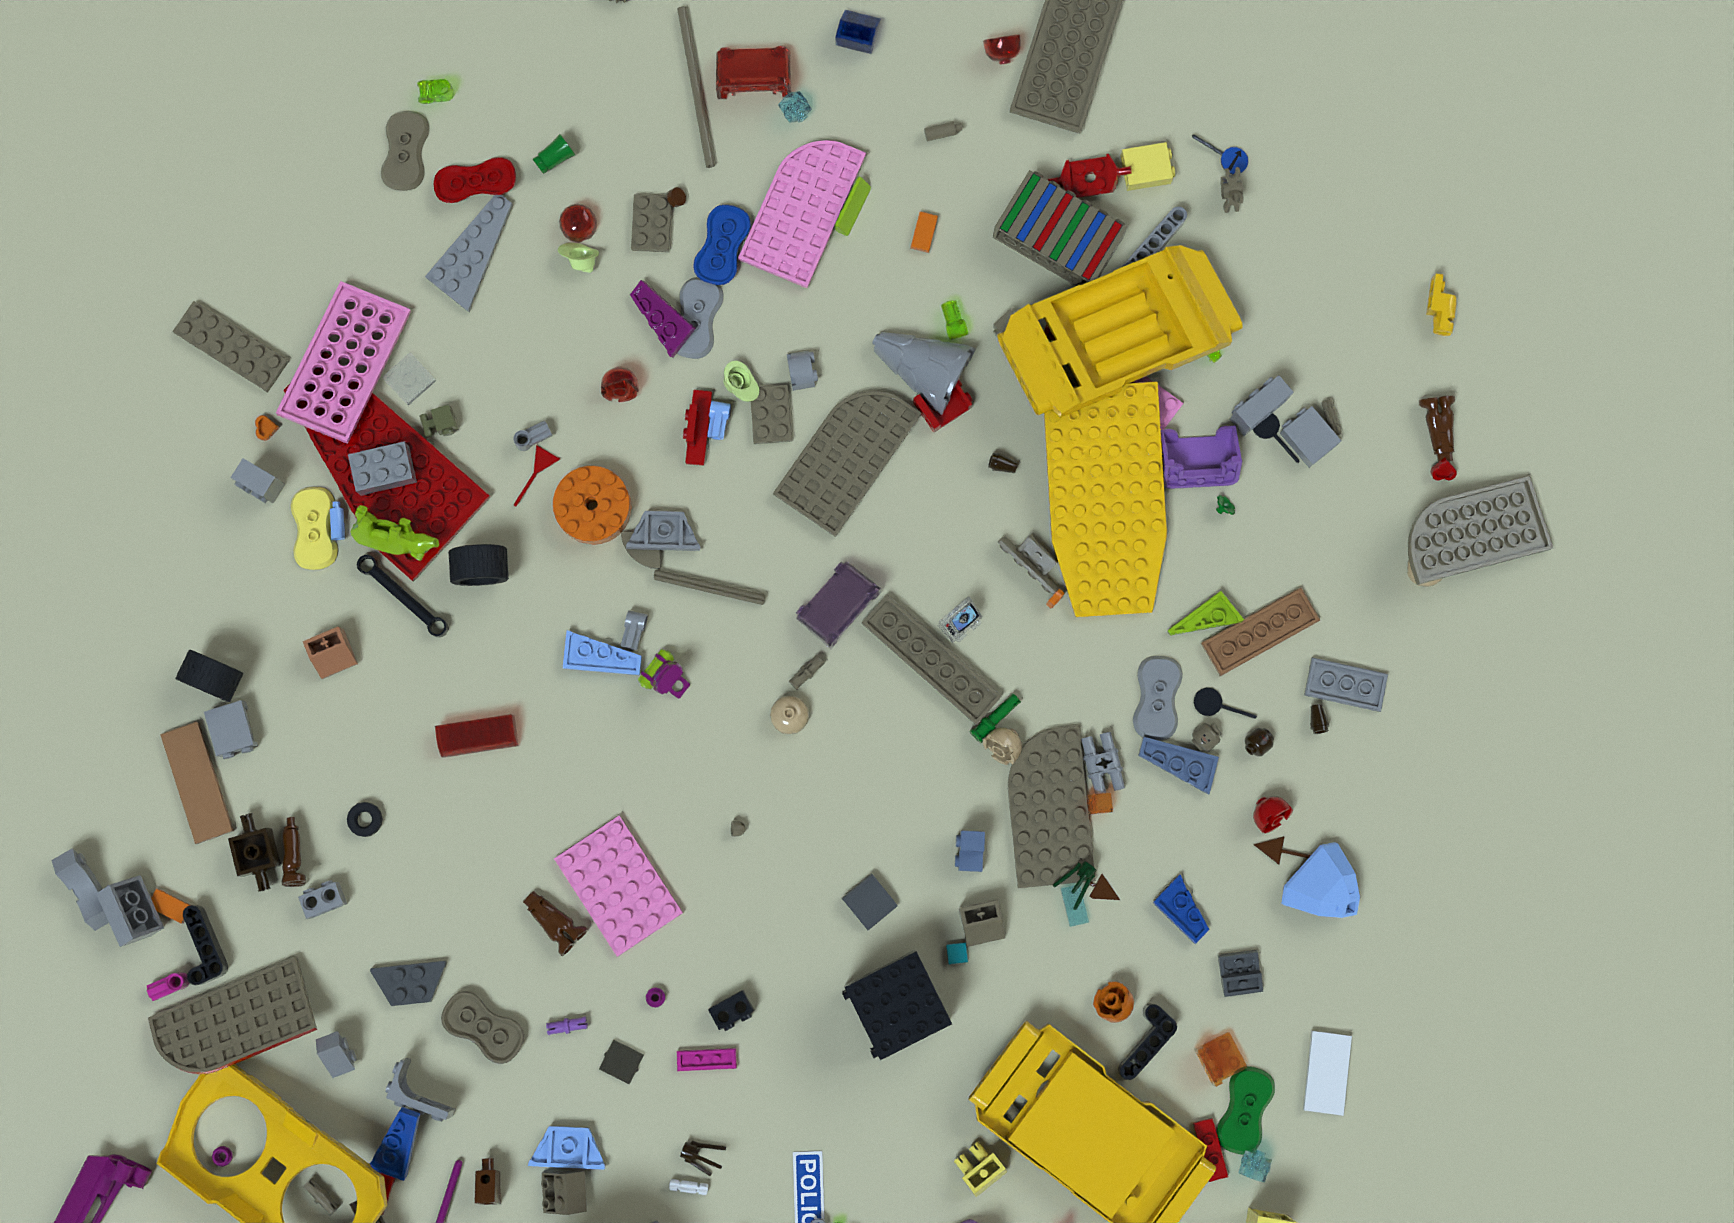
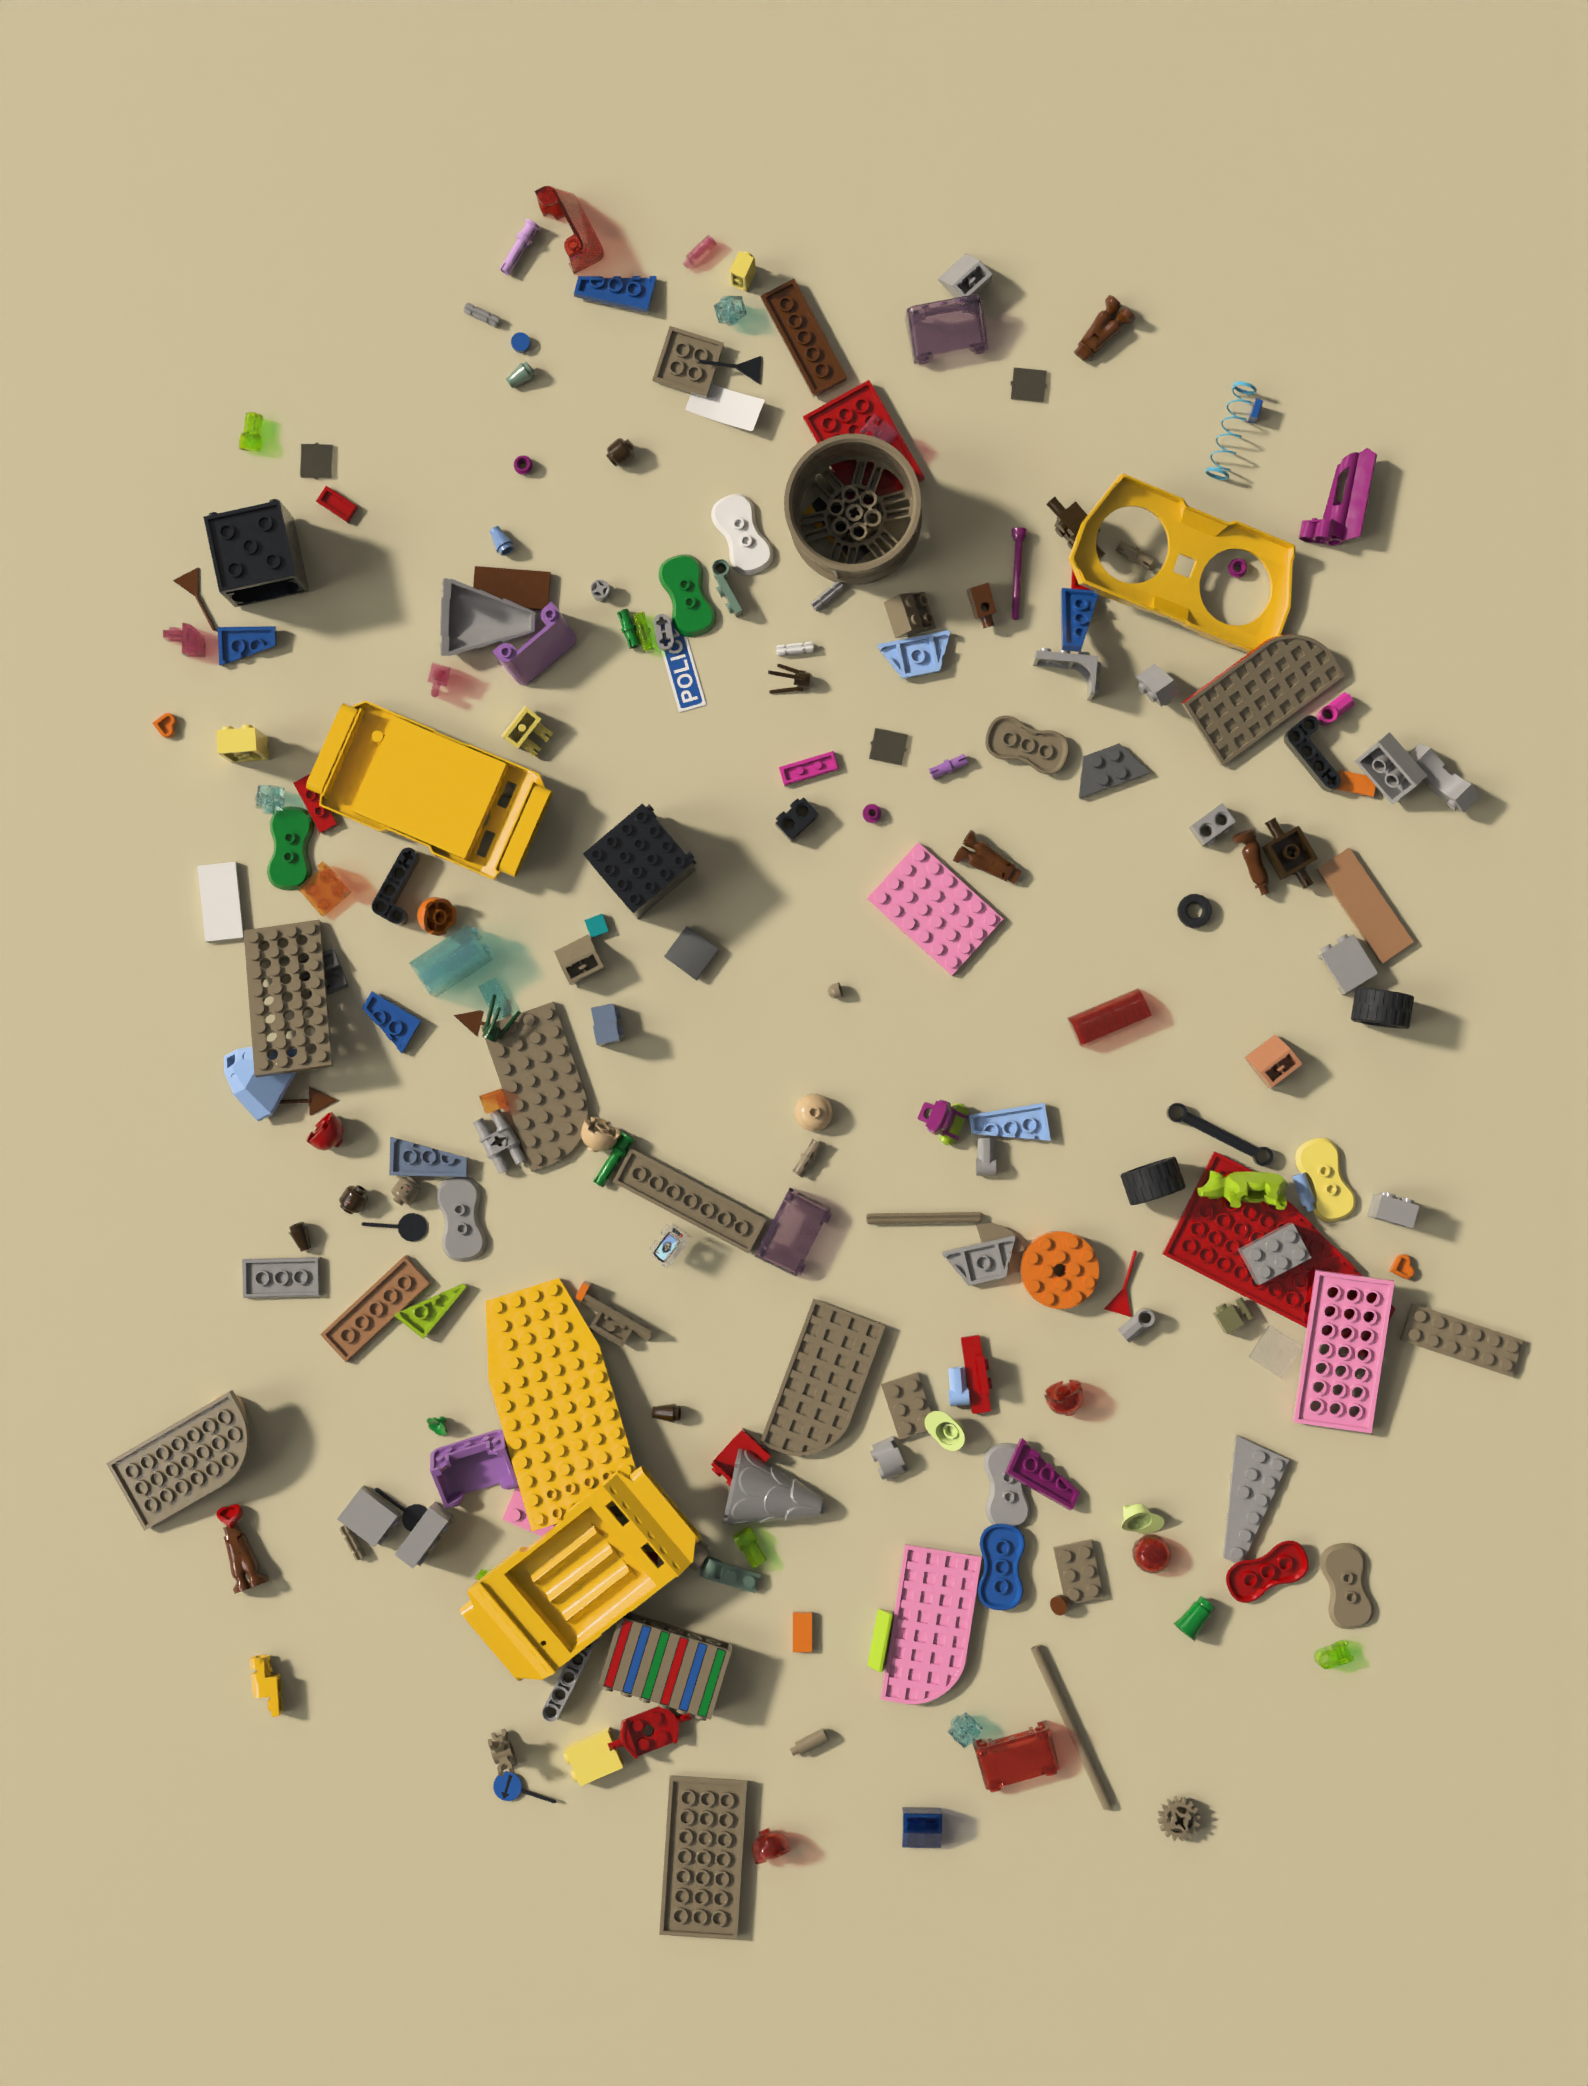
camera: 170 degrees right, 5 degrees up
(979, 299) = (730, 1575): none -> sand green plate
(1108, 953) = (452, 960): none -> clear light blue brick
(1309, 968) = (258, 993): none -> dark tan piece

